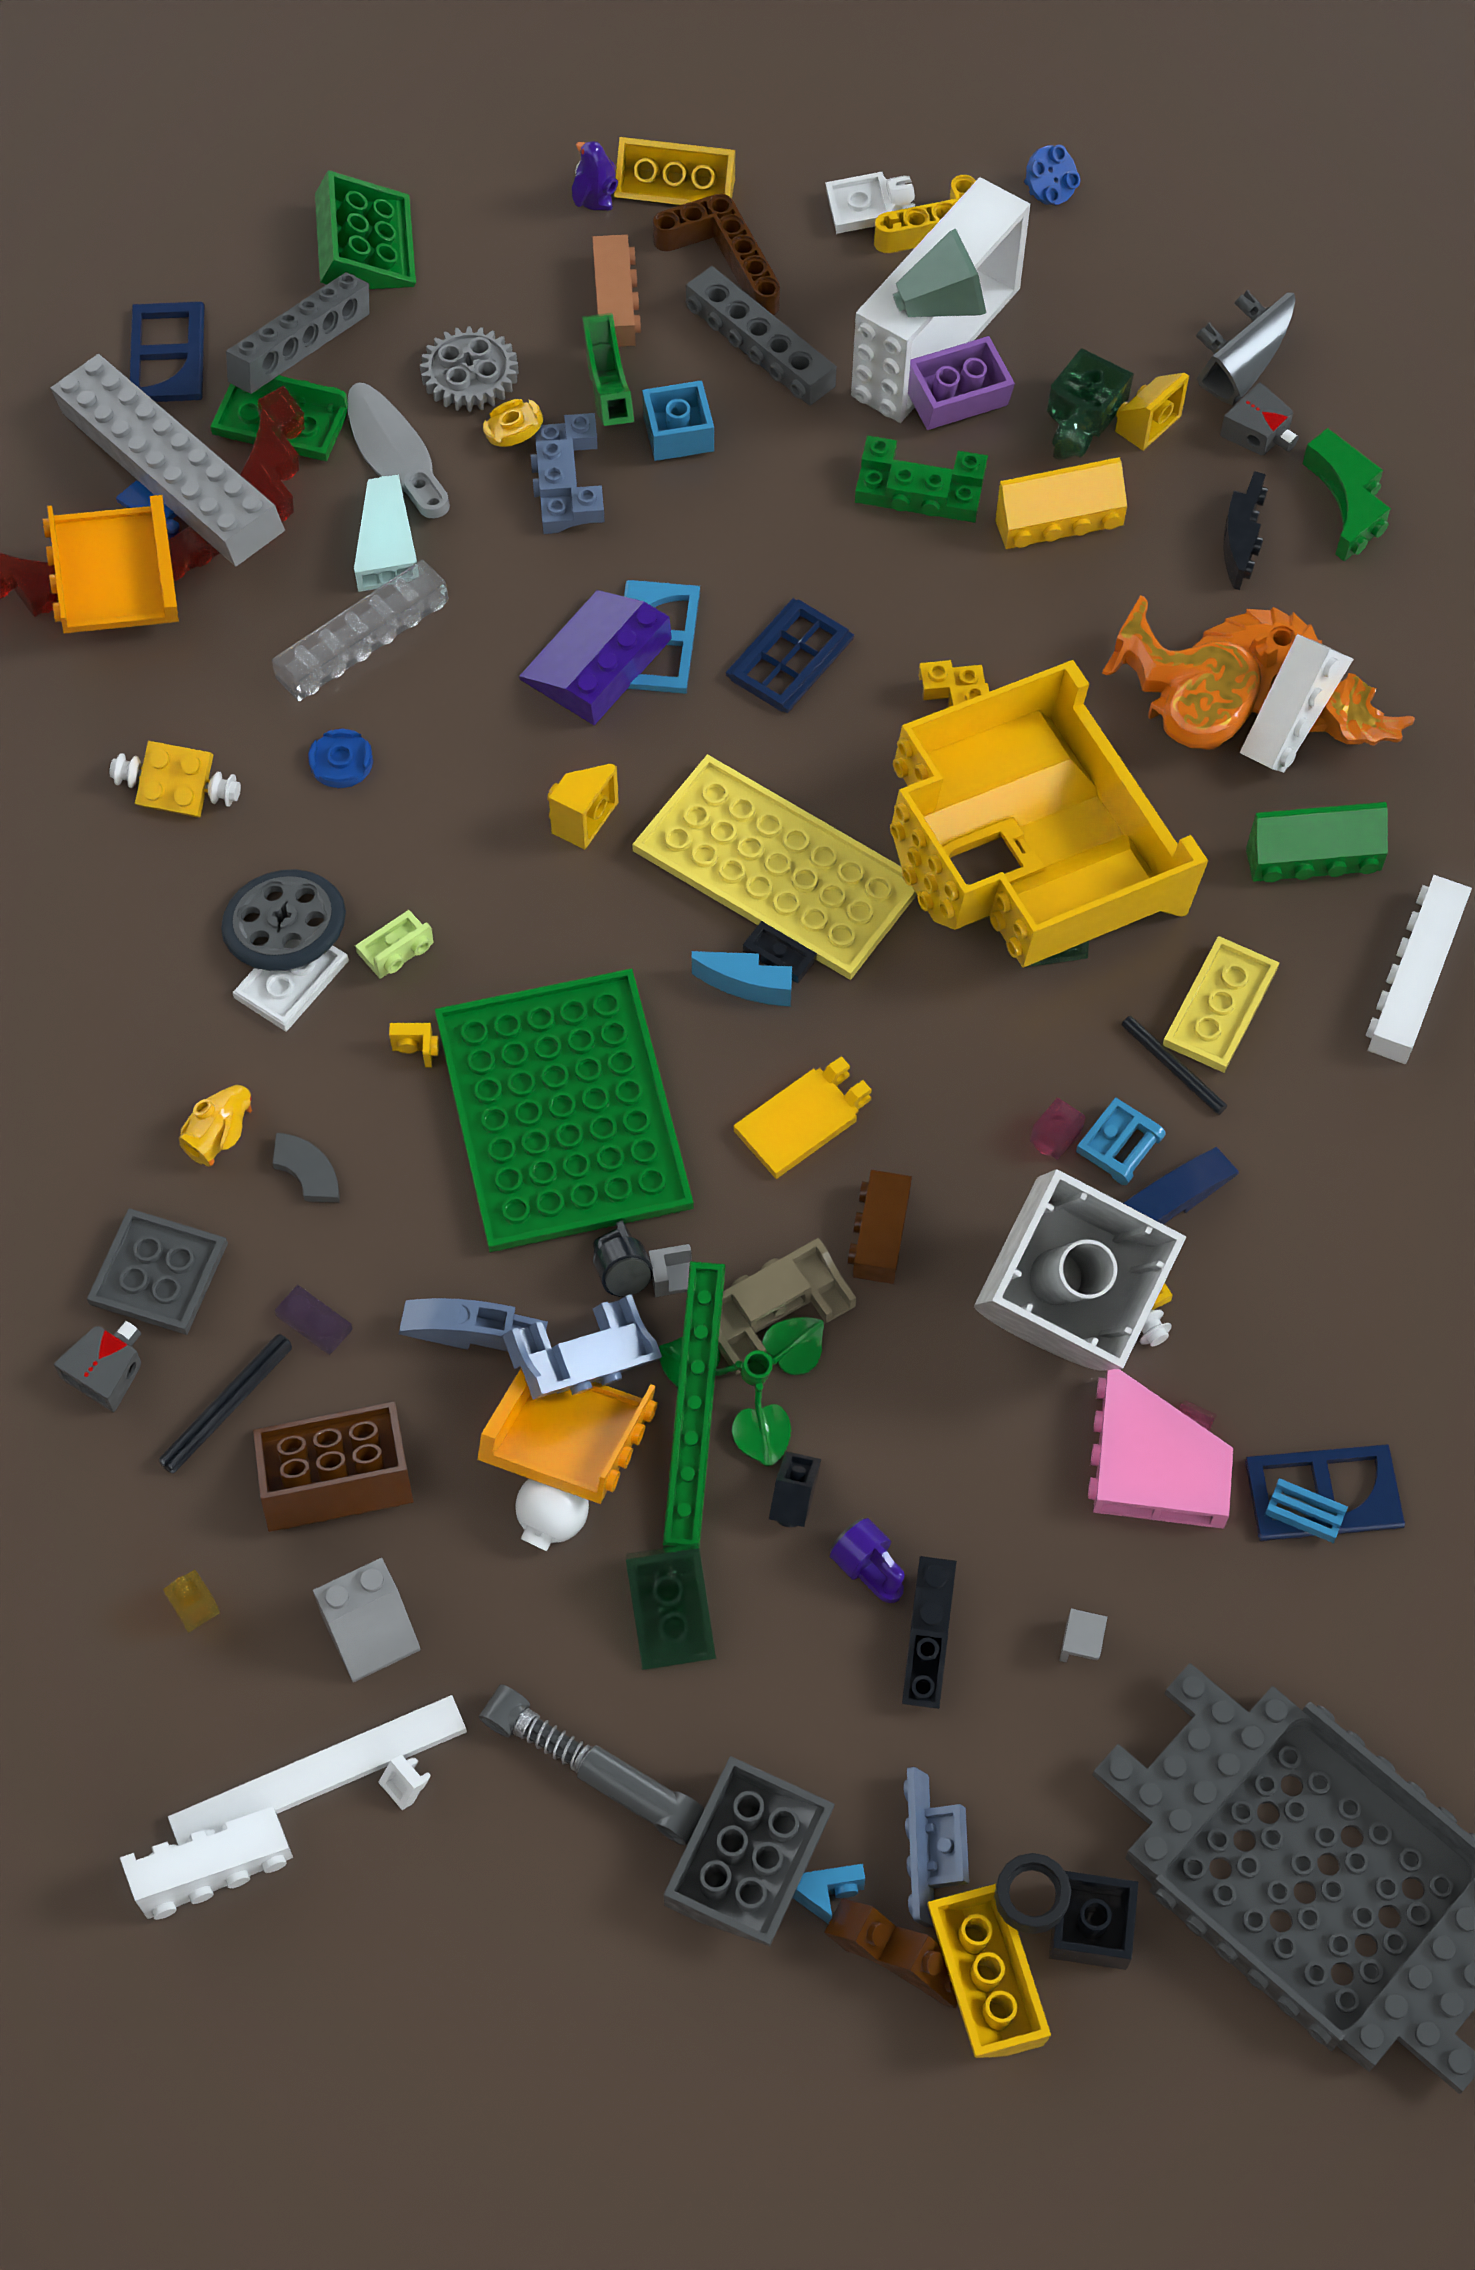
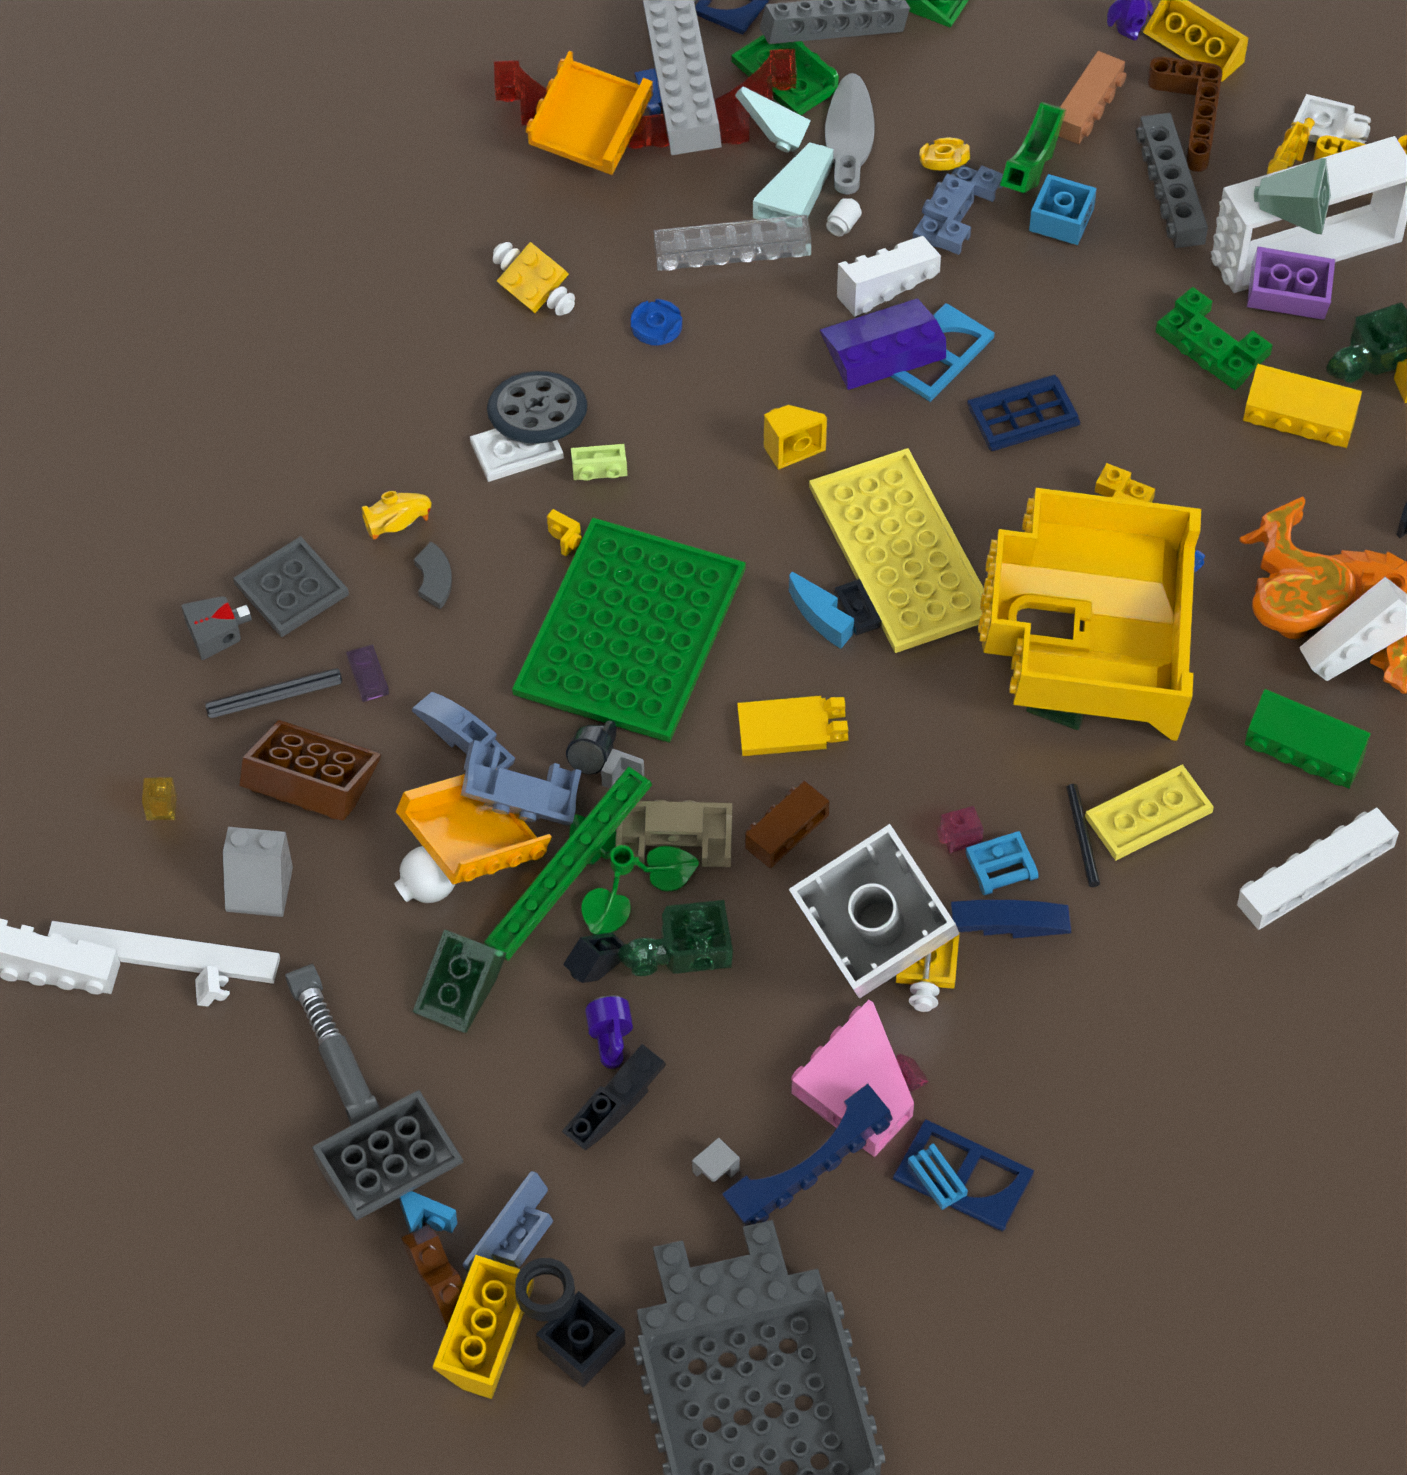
camera: 35 degrees right, 5 degrees down
(319, 475) = (777, 122): none -> light aqua slope
(457, 542) = (843, 217): none -> white brick
(469, 368) = (942, 102): light grey gear -> none
(549, 582) = (886, 274): none -> white wedge
(861, 268) = (1292, 146): none -> yellow plate
(878, 1413) = (692, 941): none -> clear green brick
(1203, 1494) = (759, 1197): none -> dark blue arch

